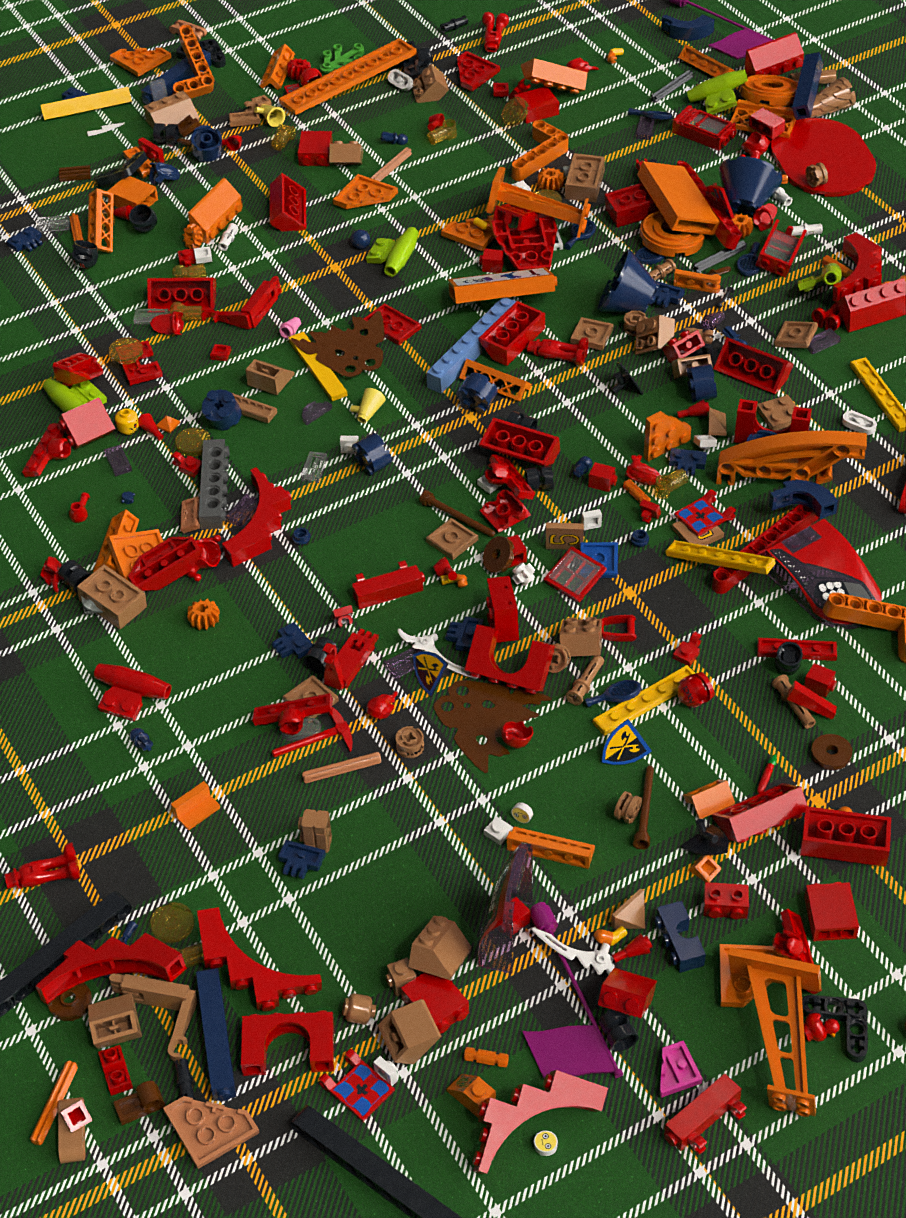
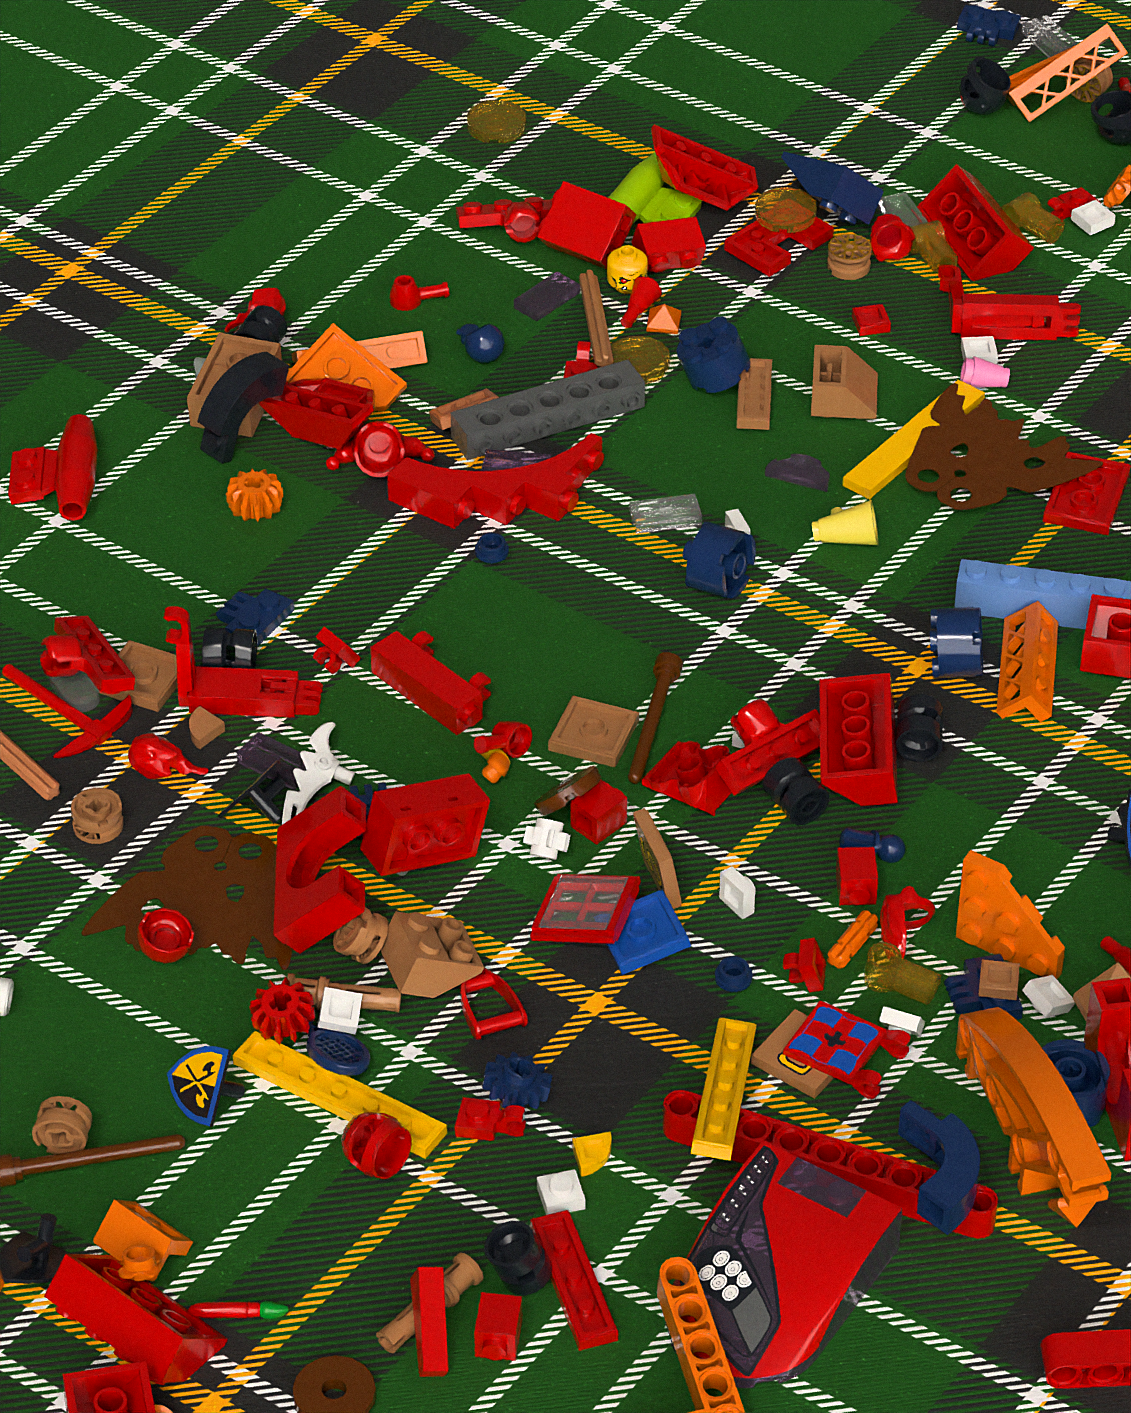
camera: 65 degrees right, 5 degrees down
(120, 398) = (670, 243): none -> red brick
(130, 325) = (836, 188): none -> dark blue slope
(143, 593) = (234, 396): none -> black arch
(145, 491) = (484, 343): none -> dark blue piece
(154, 445) = (595, 319): none -> medium nougat axle
(171, 344) = (848, 258): none -> medium nougat wheel
(273, 323) = (981, 347): none -> white plate
(364, 683) = (204, 727): none -> medium nougat tile
(596, 699) = (282, 1010): none -> red gear
(601, 680) = (340, 1010): none -> white plate
(675, 630) = (517, 1081): none -> dark blue gear
(692, 451) = (999, 979): none -> medium nougat tile
(699, 491) = (902, 1021): none -> white plate
(724, 621) = (592, 1152): none -> yellow tile
(734, 798) = (139, 1263): none -> orange plate
(744, 638) = (561, 1192): none -> white plate

